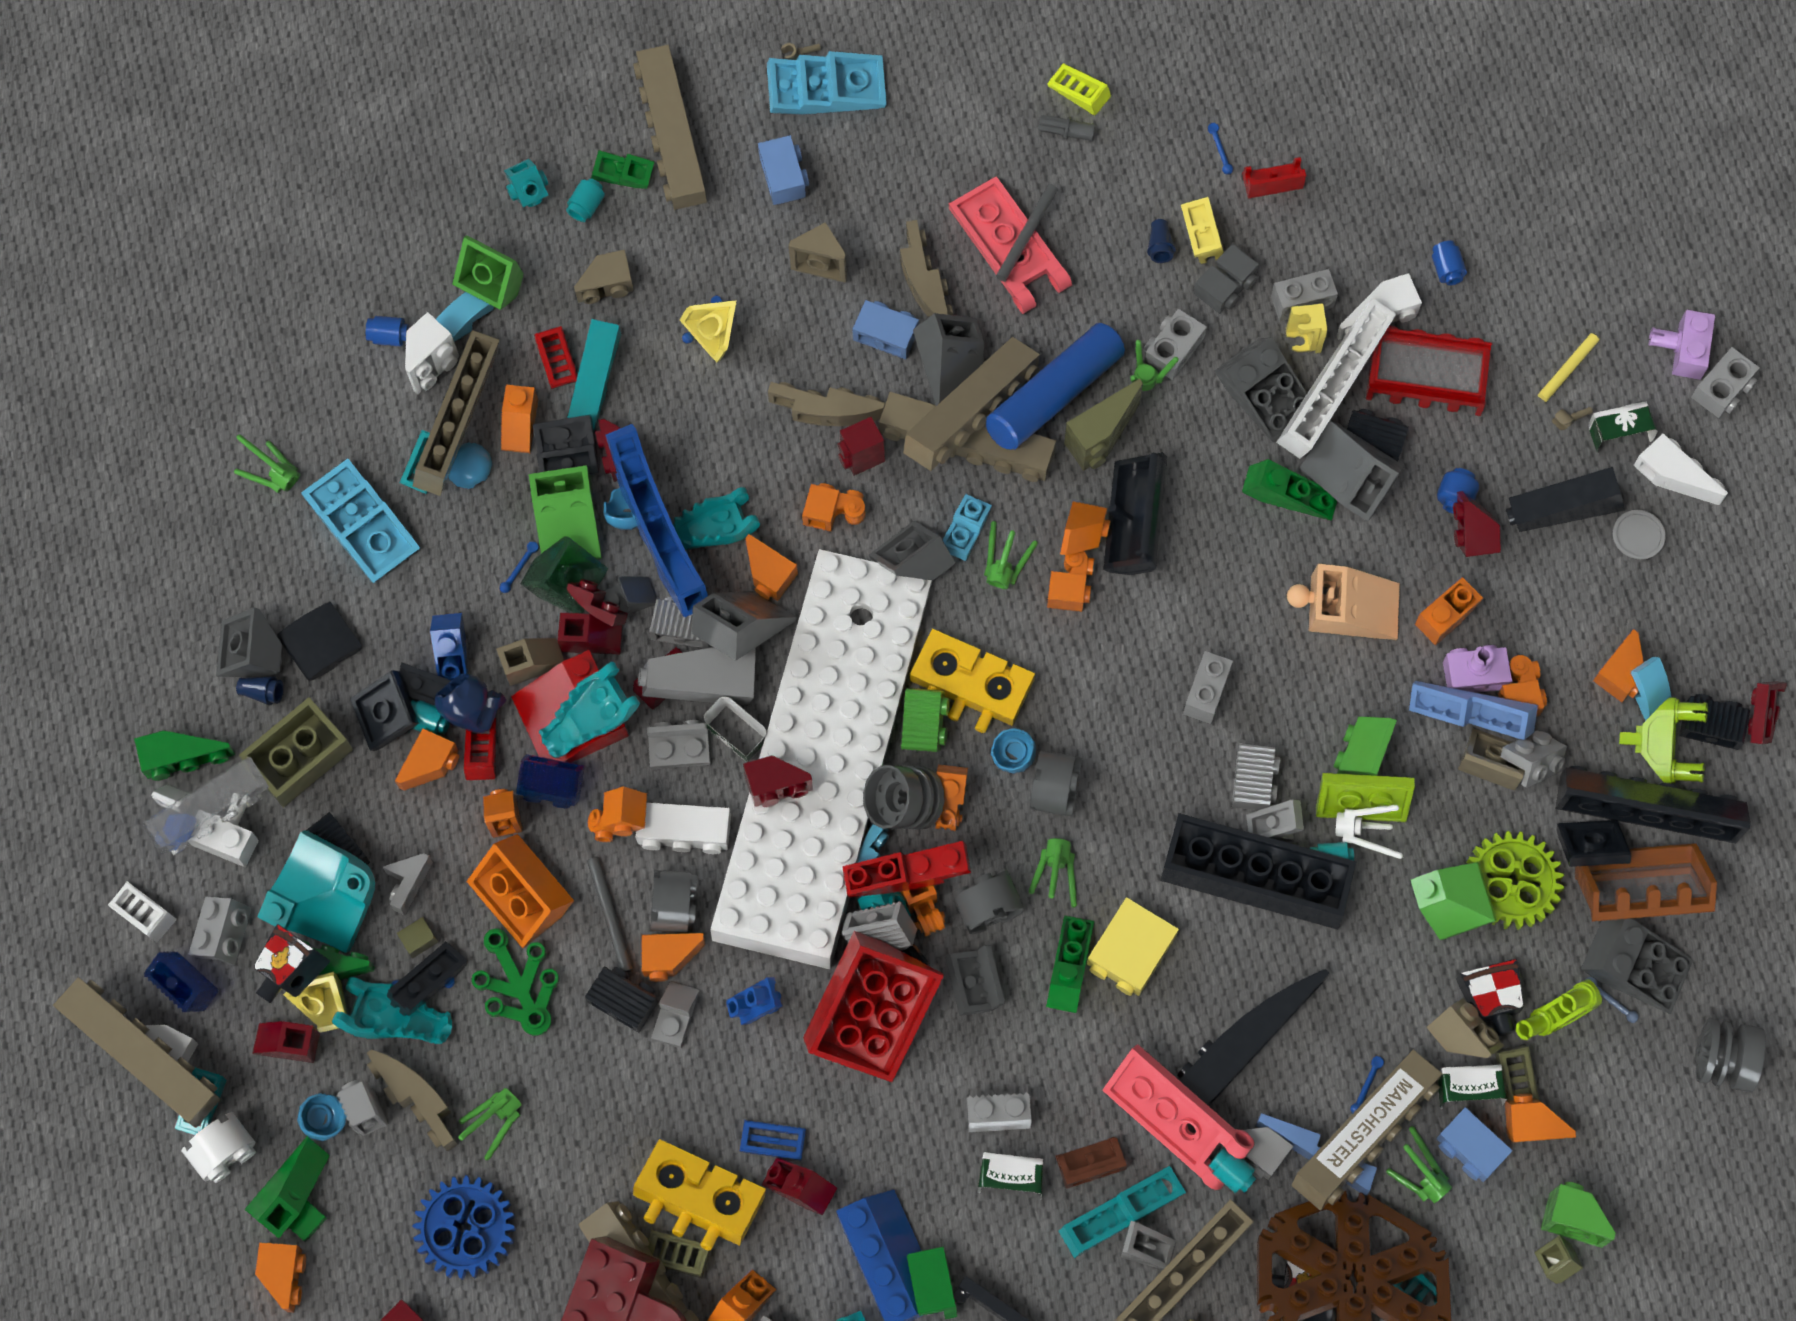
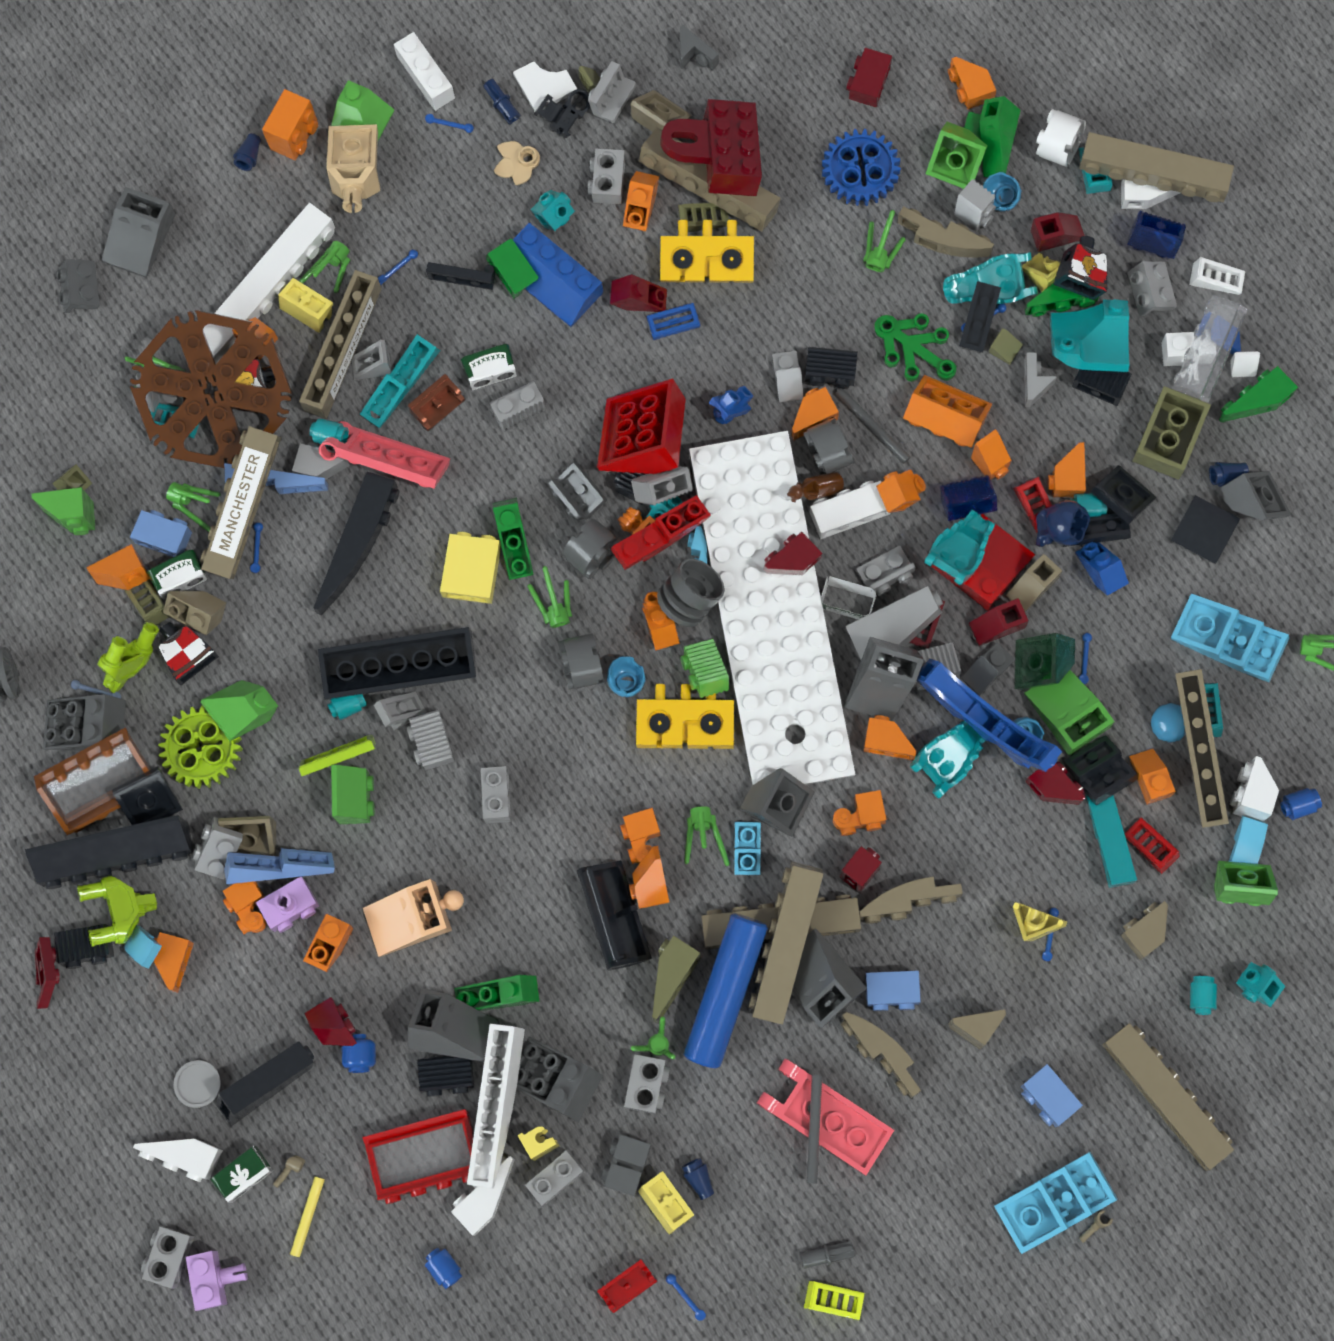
camera: 160 degrees right, 5 degrees up
(347, 1188) = (956, 155): none -> bright green slope
(593, 601) = (1012, 645): dark red slope -> none
(627, 171) = (1188, 1040): green slope -> none
(709, 857) = (817, 487): none -> reddish brown wheel
(1350, 825) = (341, 733): white plant -> none

